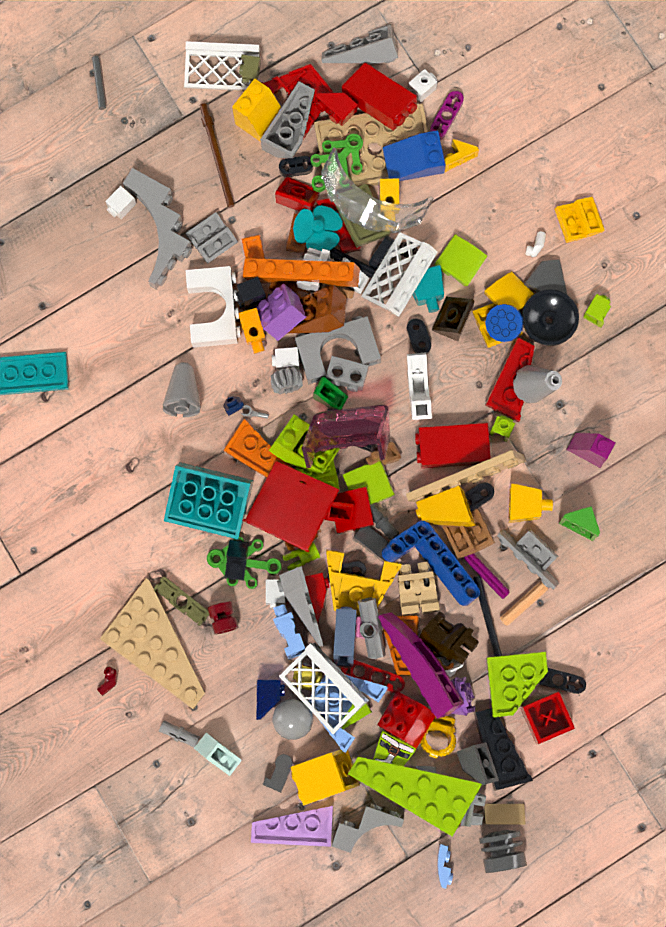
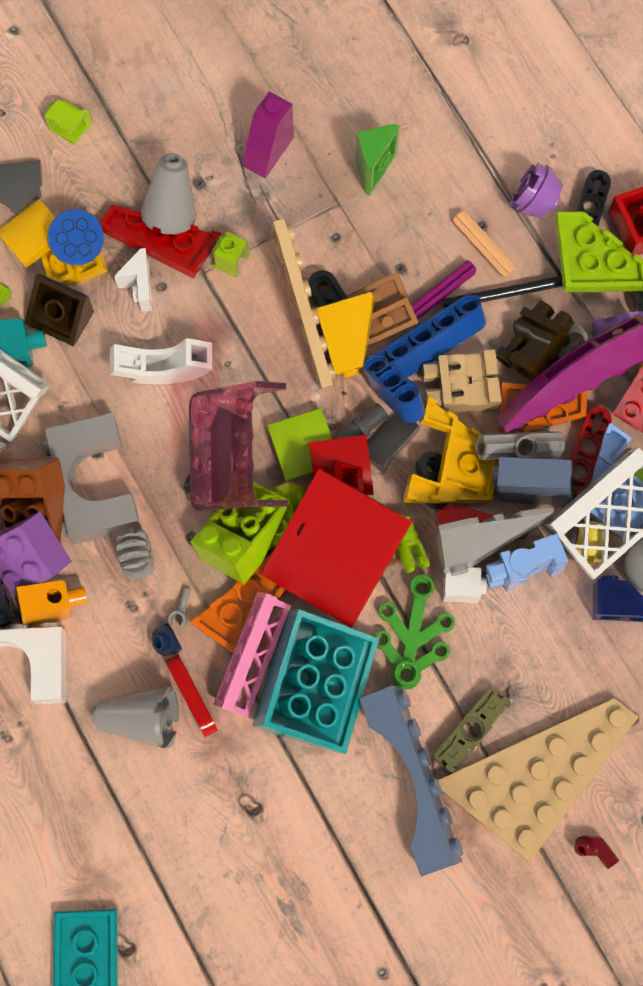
camera: 90 degrees left, 5 degrees down
(185, 548) = (433, 839): none -> sand blue arch
(198, 423) = (191, 695): none -> red beam
(224, 624) = (511, 662): dark red wheel -> none
(225, 455) = (246, 651): none -> bright pink fence
(236, 560) = (411, 641): black slope -> none
(285, 358) = (100, 555): white brick -> none
(329, 394) = (161, 494): green slope -> none
(348, 368) = (123, 465): light grey brick -> none
(391, 456) = (261, 416): medium nougat plate -> none
(418, 336) = (82, 365): black plate -> none
(452, 445) = (251, 322): red brick -> none
(484, 369) = (137, 275): none -> white slope
(526, 503) = (342, 230): yellow torso -> none
(534, 553) = (414, 223): light grey bracket -> none
(559, 309) = (70, 165): black dish -> none
(562, 638) = (537, 192): none -> medium lavender cone

